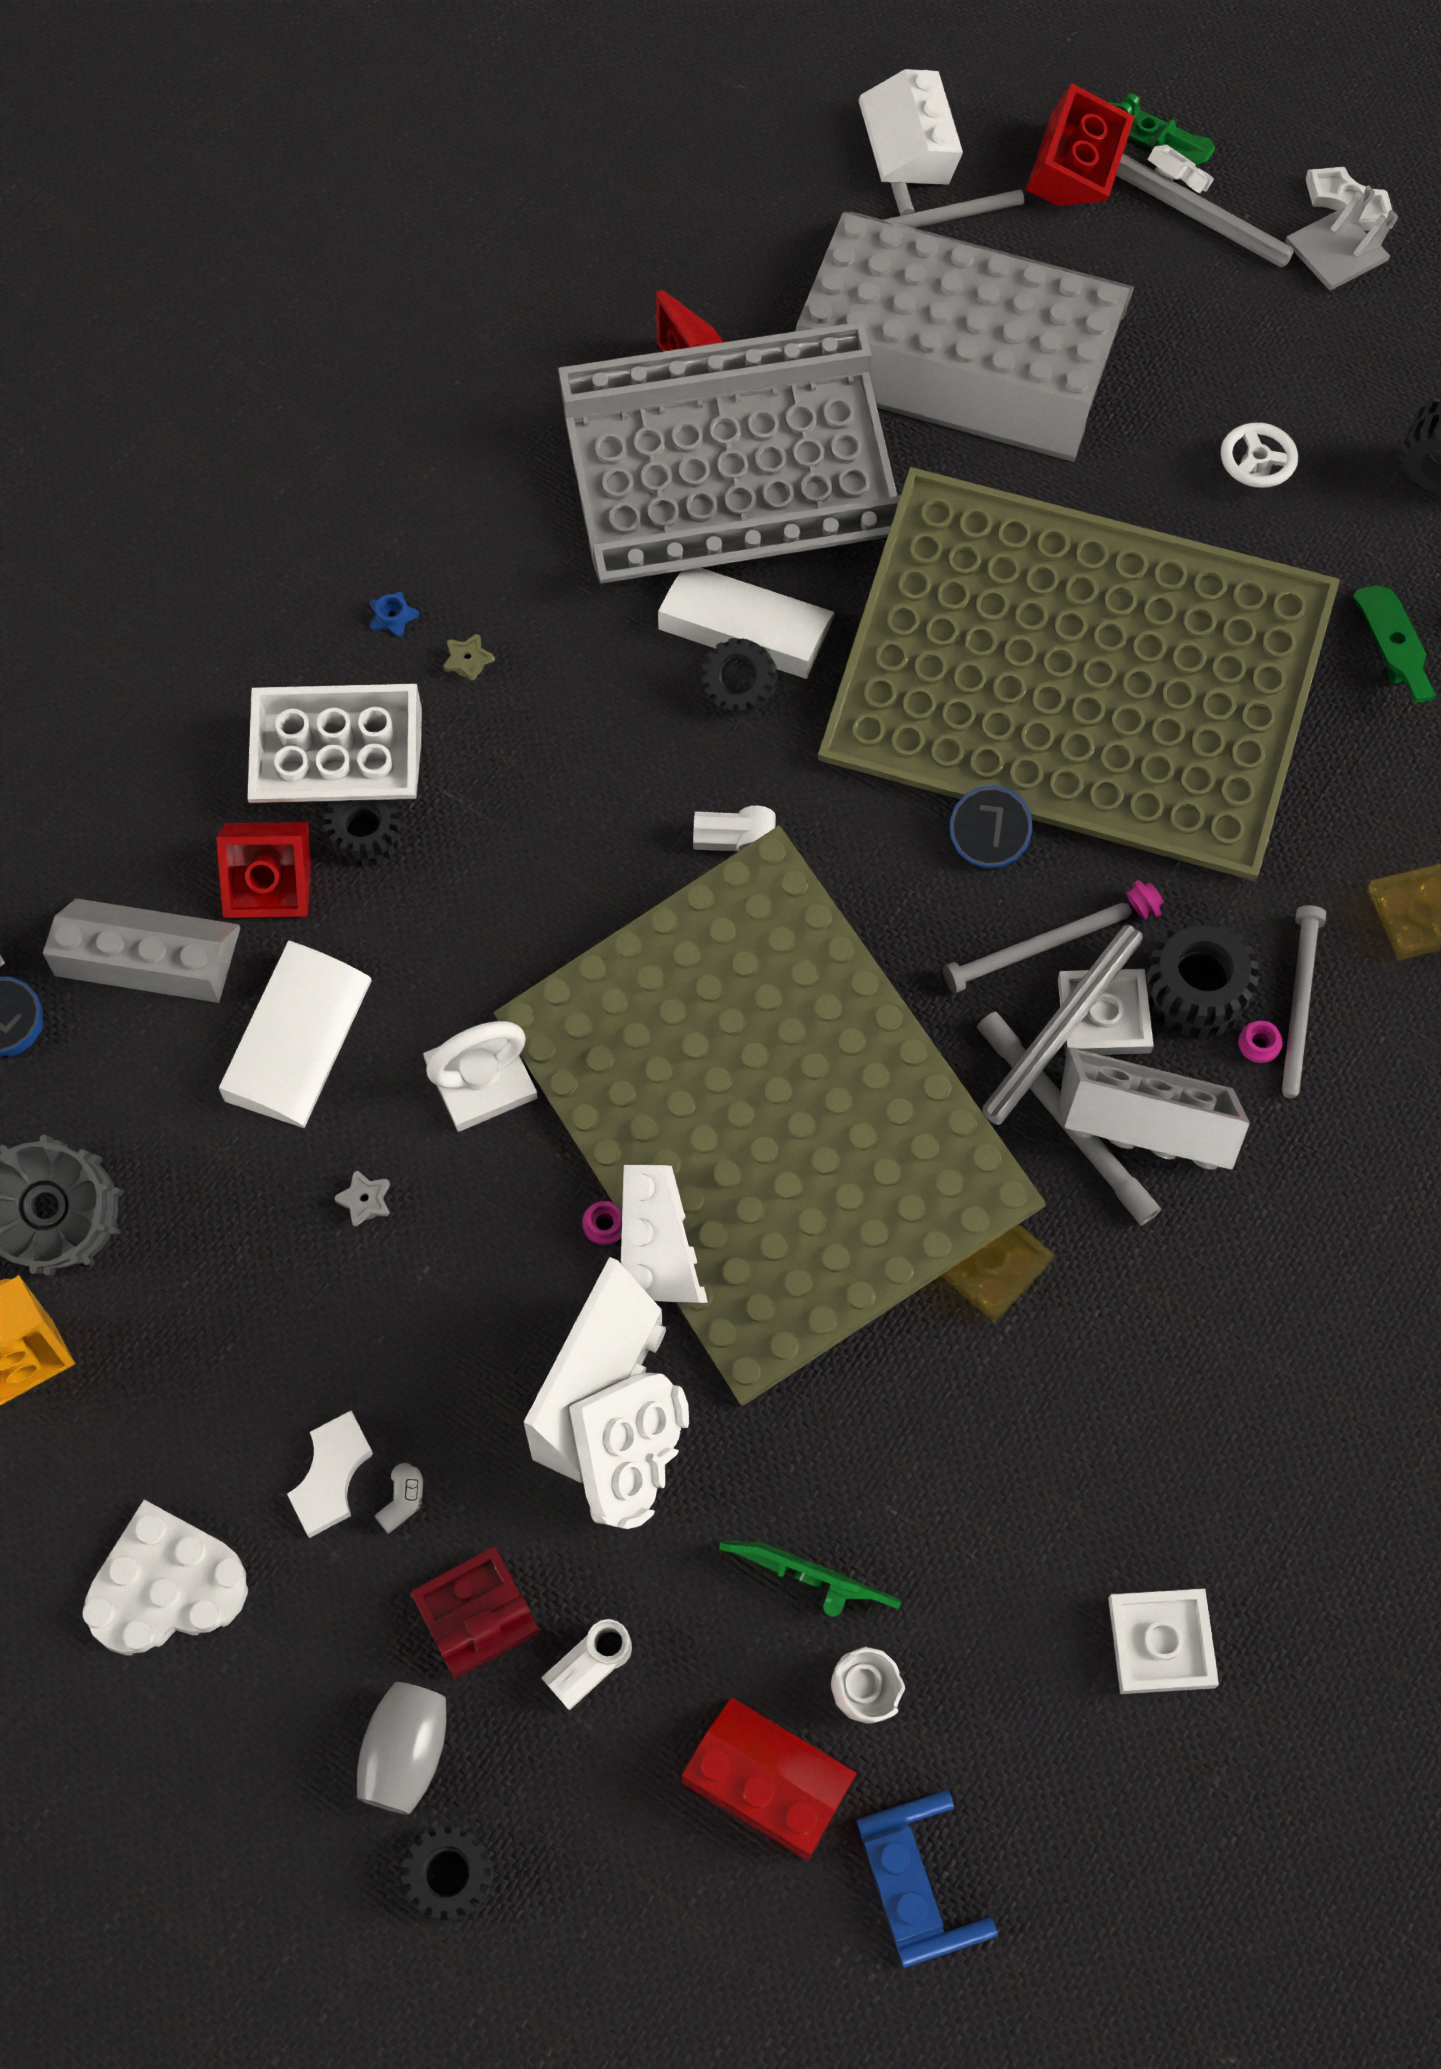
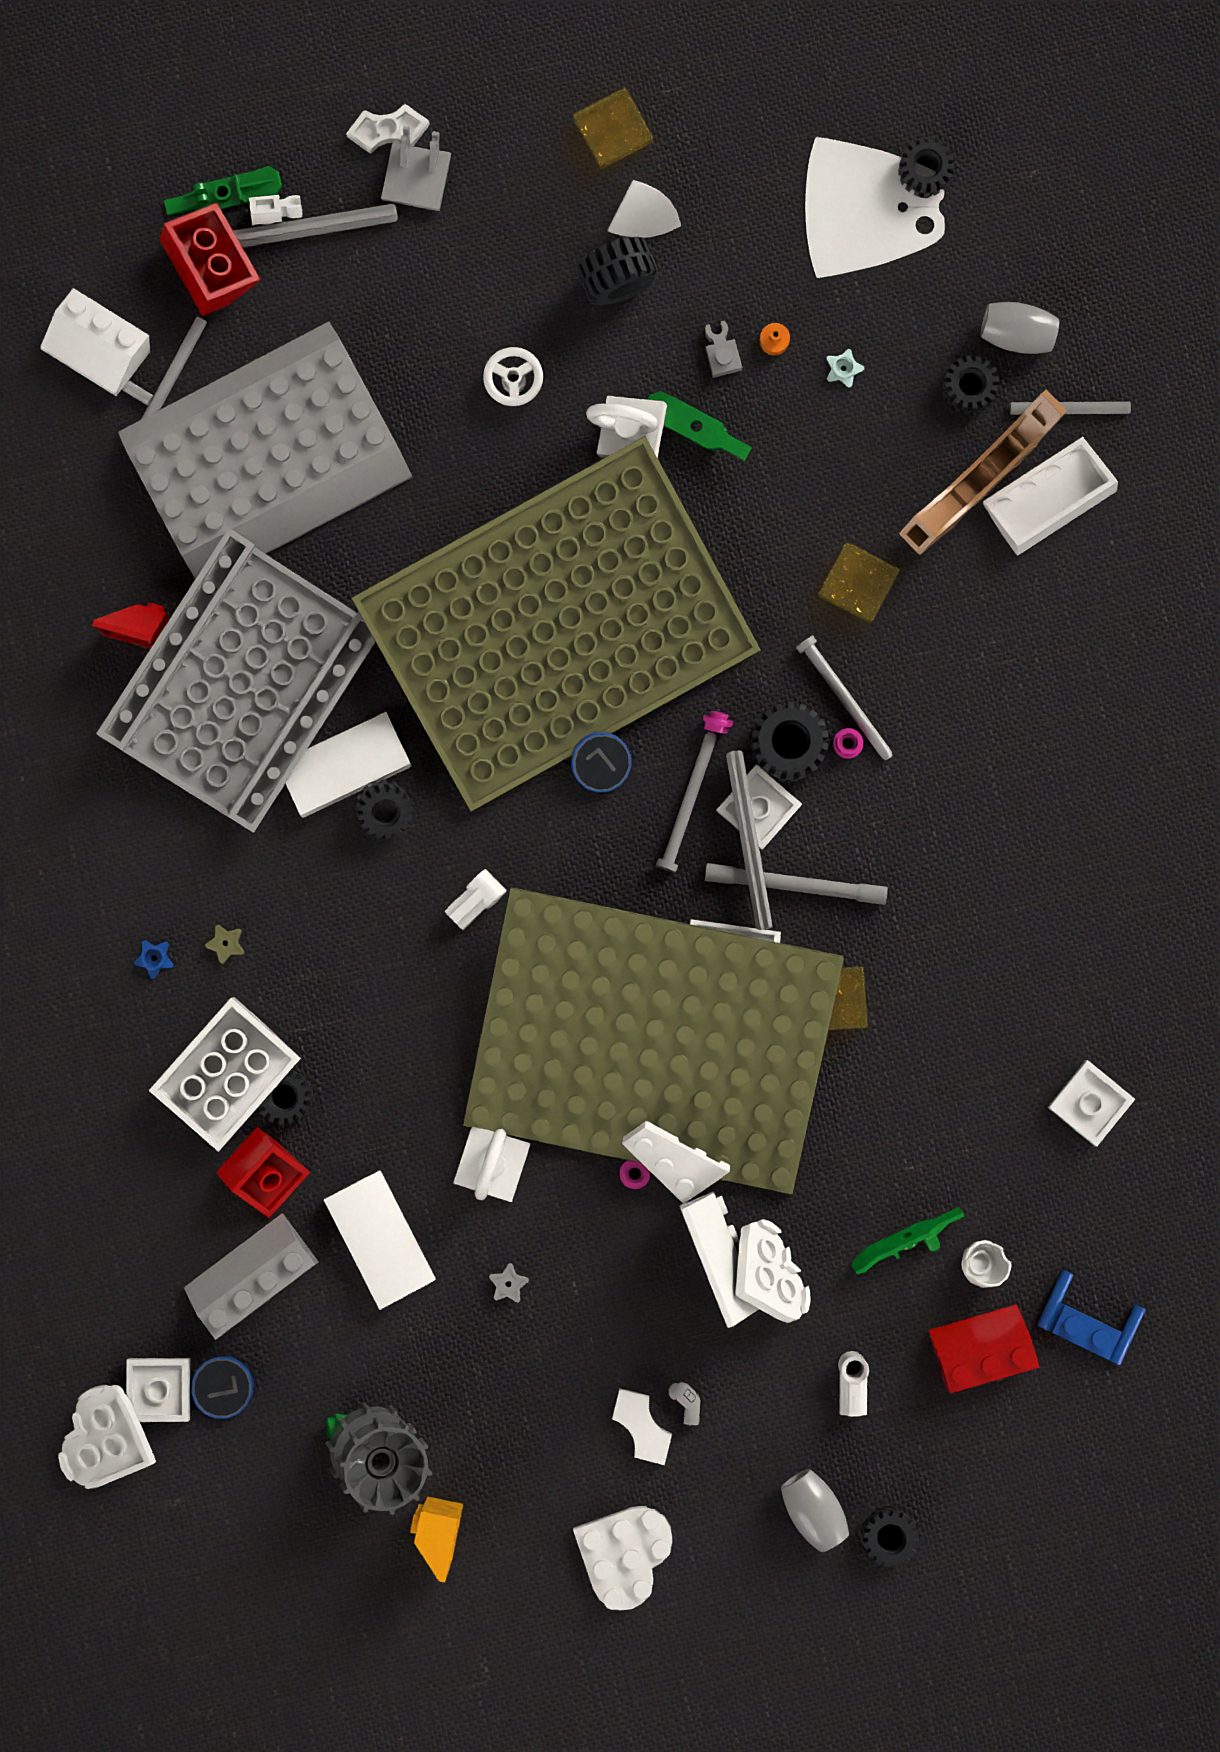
camera: 45 degrees left, 20 degrees up
(475, 1612) = (778, 1417): dark red plate -> none
(1151, 1110) = (834, 841): light grey slope -> none
(1356, 588) = (627, 421): none -> white tile

